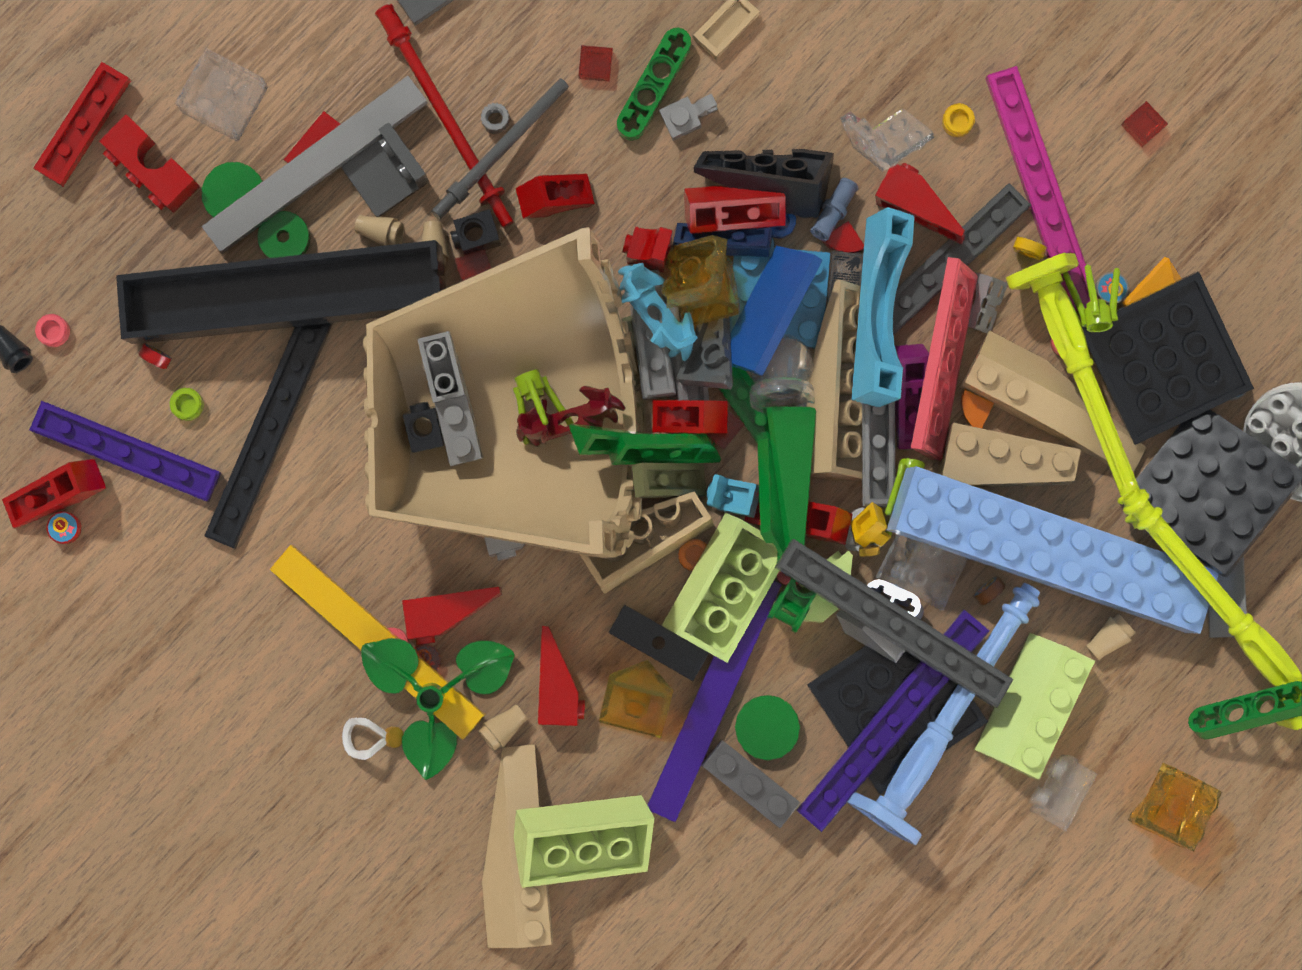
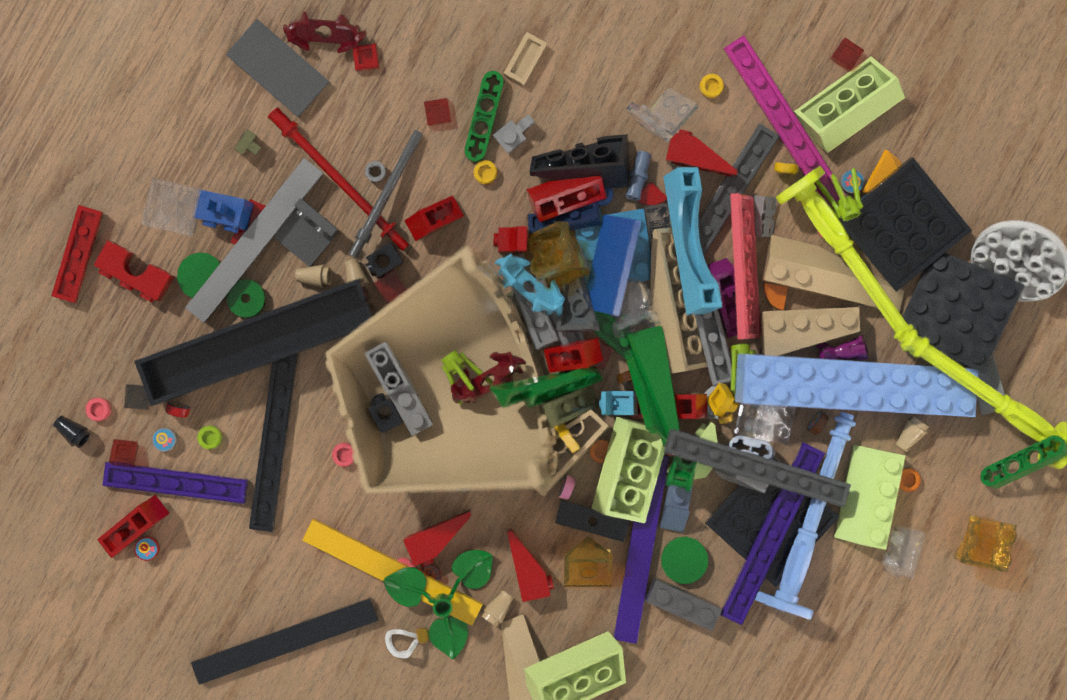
camera: 15 degrees left, 5 degrees up
(69, 394) = (123, 452): none -> clear red tile
(105, 327) = (136, 397): none -> clear smoke tile
(127, 391) = (164, 439): none -> tile
(209, 697) = (284, 641): none -> black tile
(286, 116) = (223, 210): none -> blue brick
(339, 39) = (246, 143): none -> olive tile
(353, 472) = (343, 454): none -> coral tile
(636, 589) = (566, 487): none -> bright pink tile
(637, 155) = (485, 172): none -> yellow tile
(653, 518) = (567, 437): none -> yellow tile
(749, 465) = (624, 378): none -> reddish brown tile
(774, 654) = (675, 509): none -> sand blue slope
(1057, 503) = (847, 350): none -> magenta animal
(1092, 698) = (909, 480): none -> orange tile
(1133, 188) = (850, 104): none -> yellowish green slope

